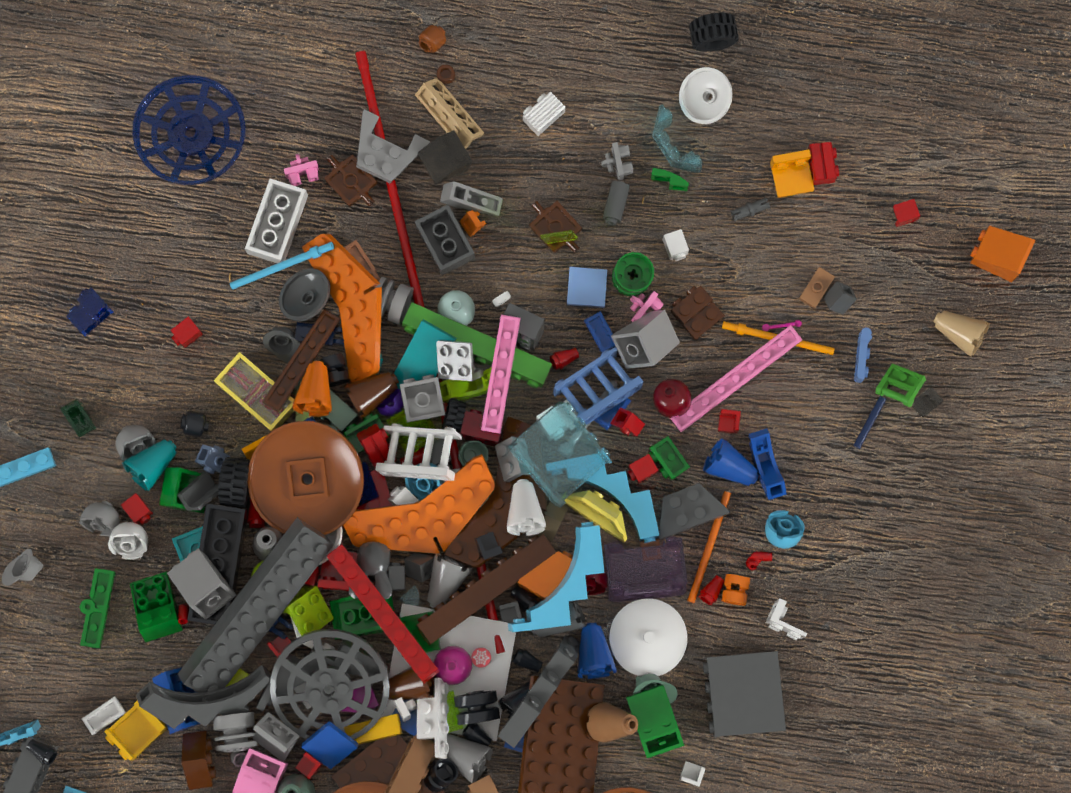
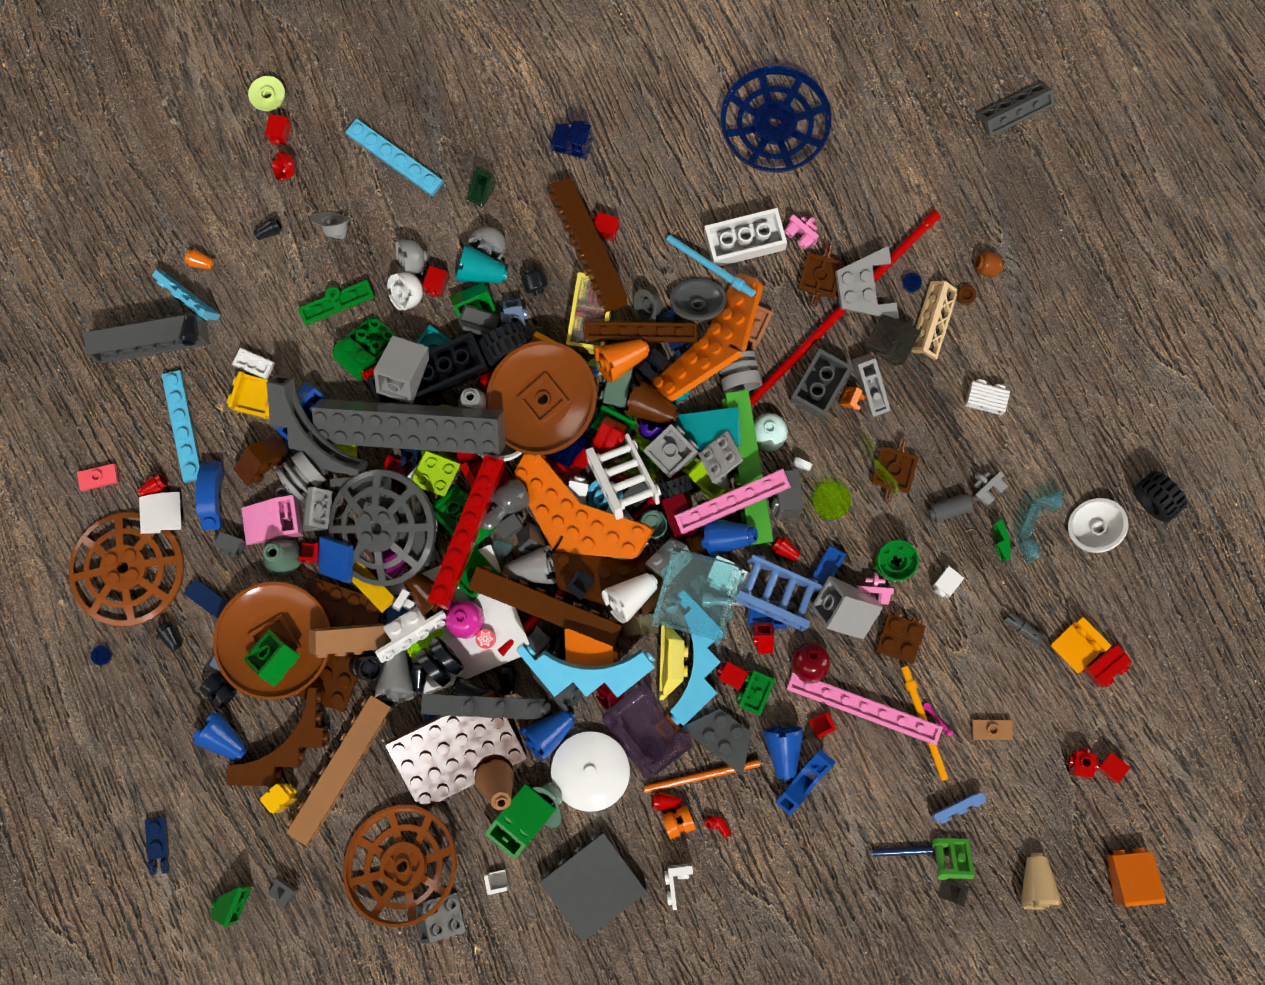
camera: 65 degrees right, 0 degrees up
(195, 356) = (588, 245): none -> reddish brown brick
(405, 111) = (911, 282): none -> clear blue tile
(525, 397) = (726, 536): none -> blue cone
(547, 295) = (831, 500): none -> clear neon green tile
(587, 287) = (860, 529): light blue tile -> none
(784, 529) = (757, 832): medium azure cylinder -> none
(840, 297) = (996, 756): dark grey panel -> none
(888, 233) = (1076, 764): none -> red brick

